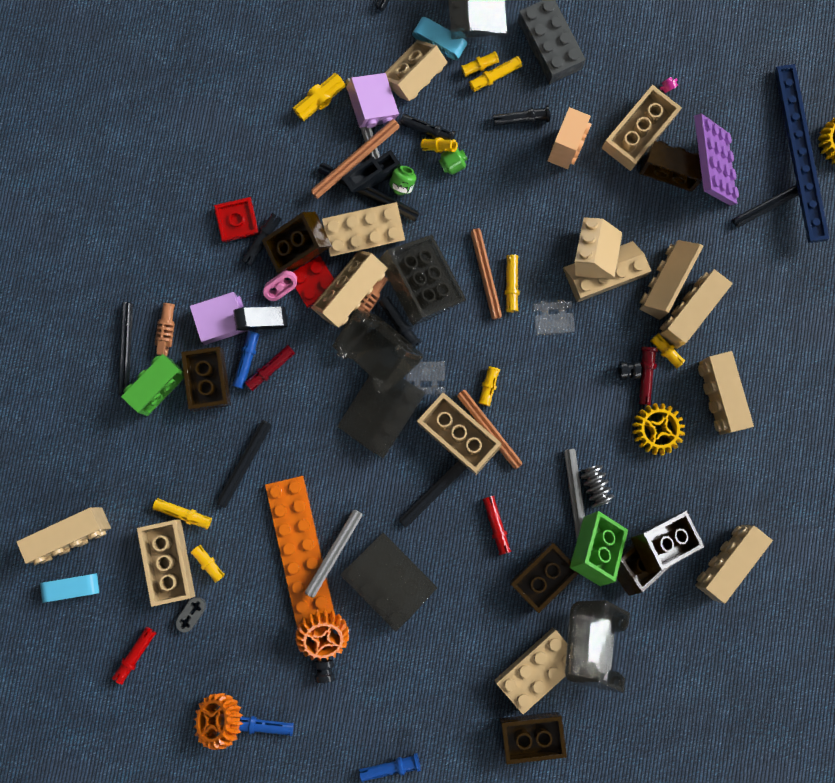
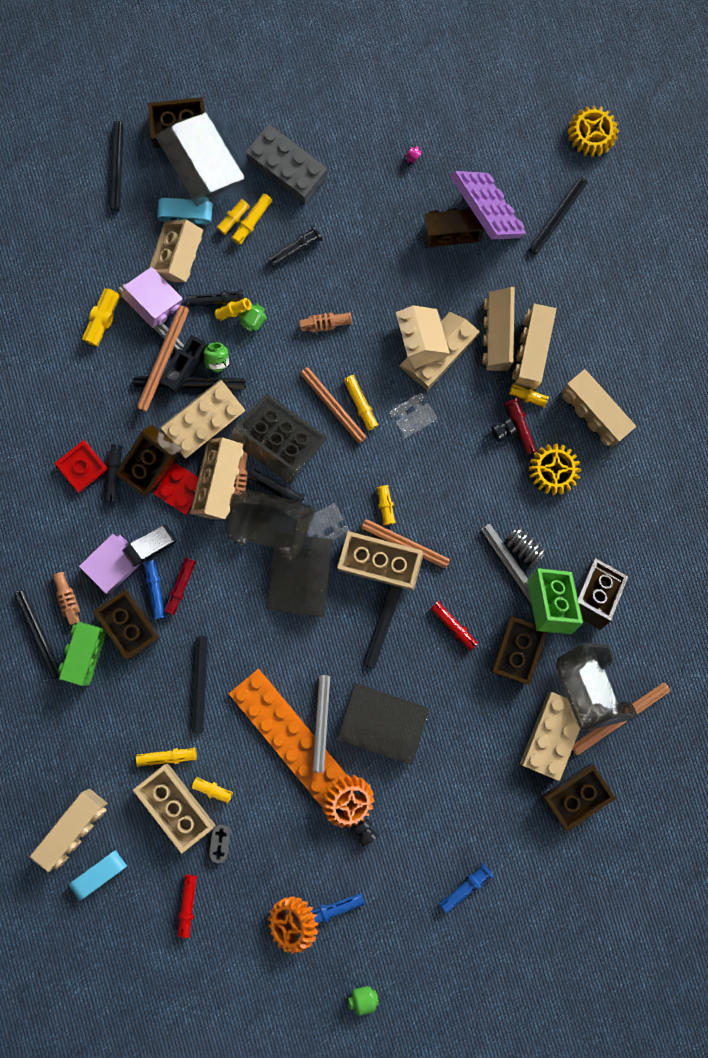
camera: 30 degrees left, 0 degrees up
(281, 285) = (151, 505): bright pink plate -> none
(515, 196) = (325, 322): none -> nougat hinge
(570, 138) = (349, 247): light nougat brick -> none
(630, 682) = (599, 733): none -> nougat axle
(641, 127) = (407, 206): tan brick -> none
(667, 542) = (611, 566): dark brown brick -> none
(733, 562) = (677, 555): tan brick -> none
(801, 154) = (560, 161): dark blue plate -> none

